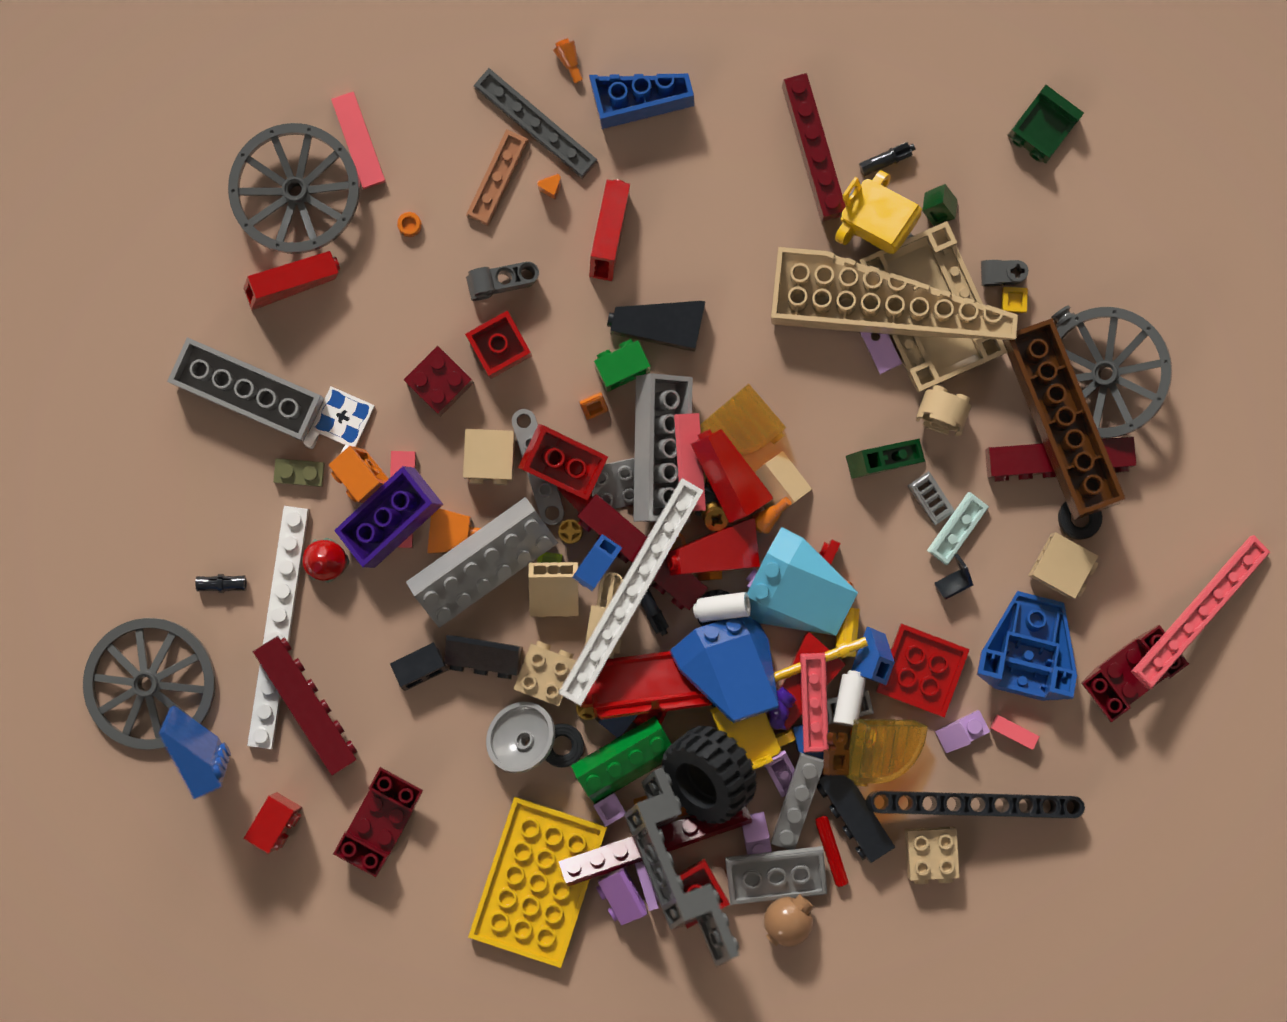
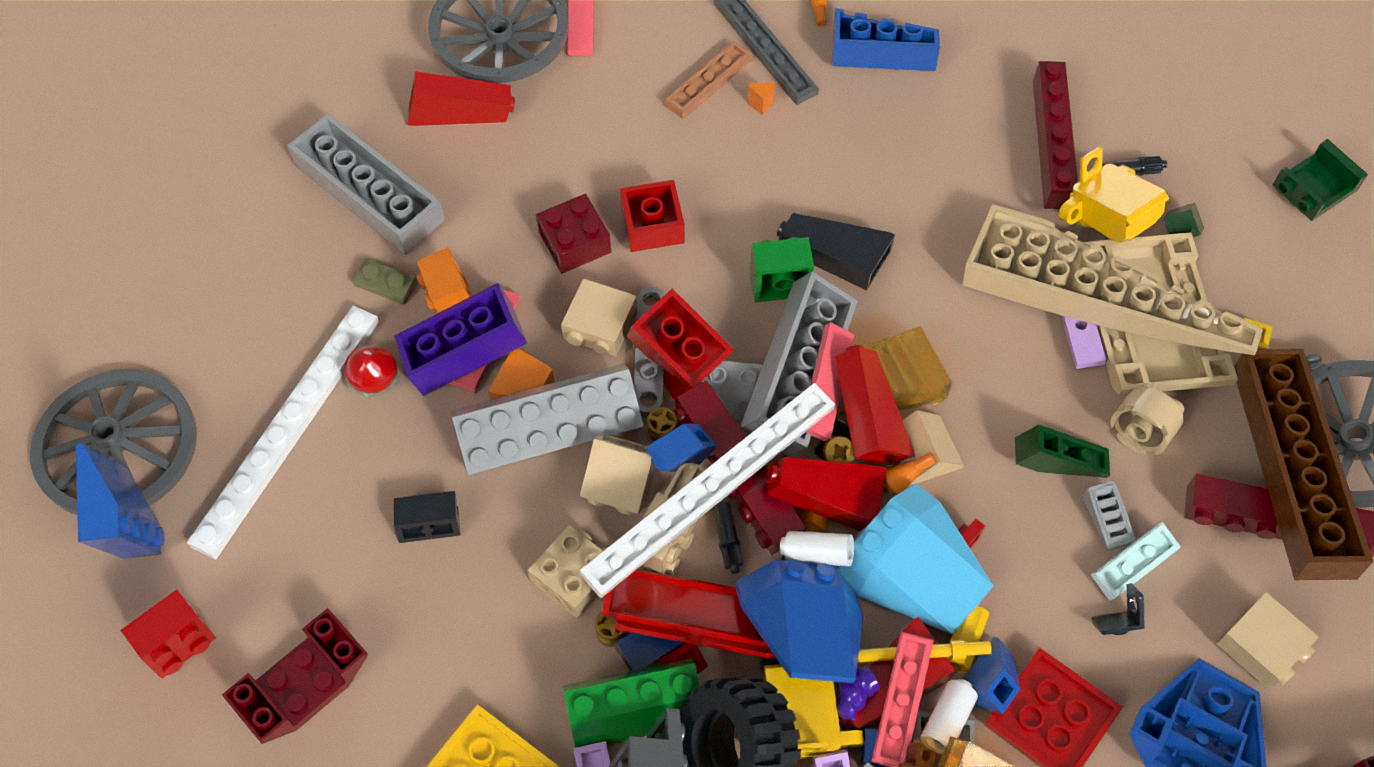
camera: 20 degrees right, 25 degrees down
(221, 583) = (246, 362): black pin -> none
(304, 704) = (274, 514): dark red brick -> none
(340, 419) = (458, 234): white flag -> none
(409, 224) = (602, 94): orange tile -> none
(482, 656) = (506, 520): black slope -> none
(484, 281) = (677, 158): dark grey piece -> none
(512, 729) = (513, 631): light grey dish -> none
(576, 751) = (556, 645): black tyre -> none
(593, 405) = (735, 306): orange slope -> none
(609, 230) = (808, 149): red slope -> none
(999, 272) = (1246, 302): dark grey piece -> none
(1075, 532) = (1315, 588): black tyre -> none

